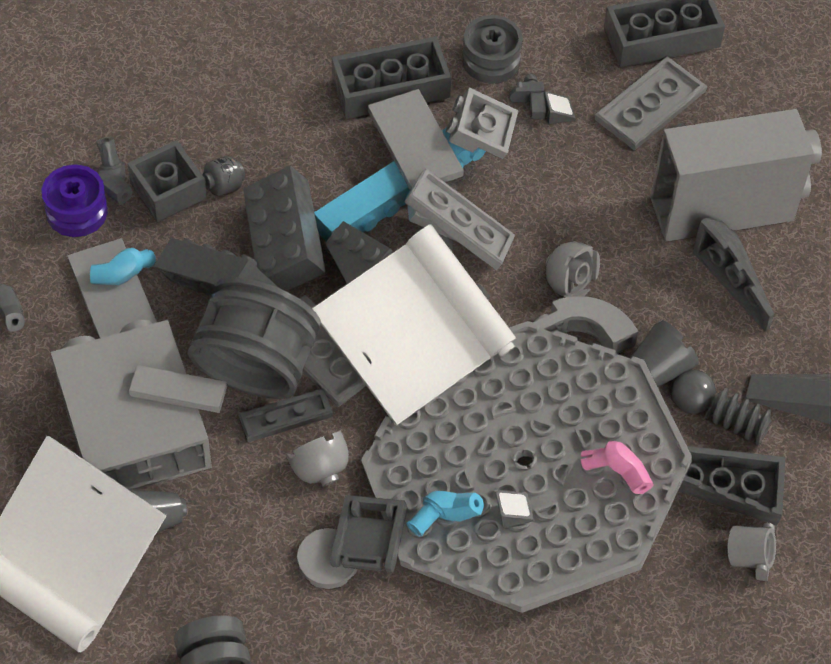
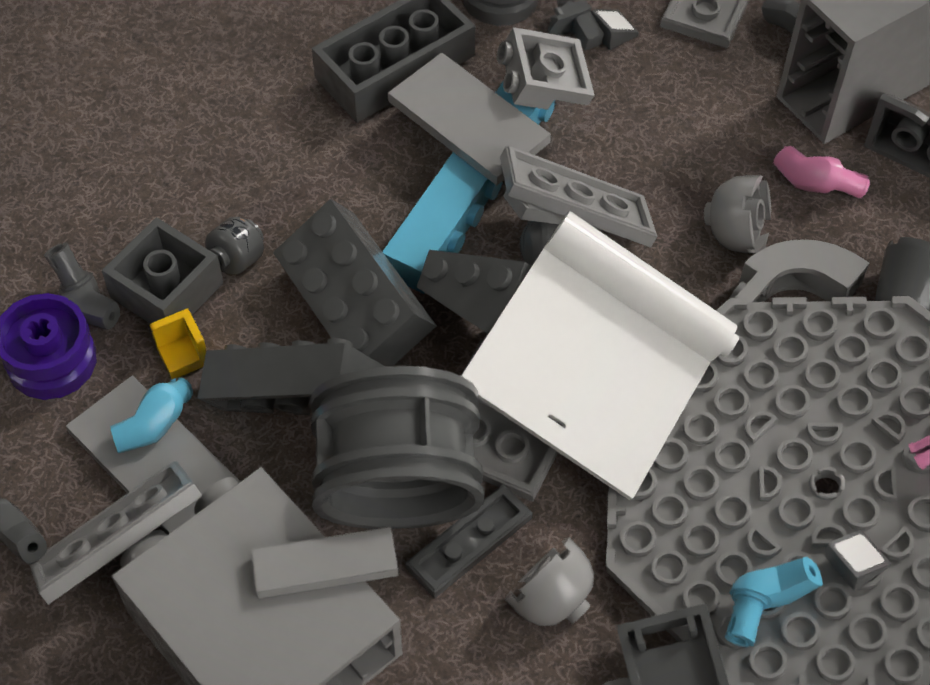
camera: 20 degrees left, 0 degrees up
(66, 328) = (113, 531): none -> light grey tile
(158, 227) = (179, 343): none -> yellow panel
(645, 260) = (819, 173): none -> bright pink arm

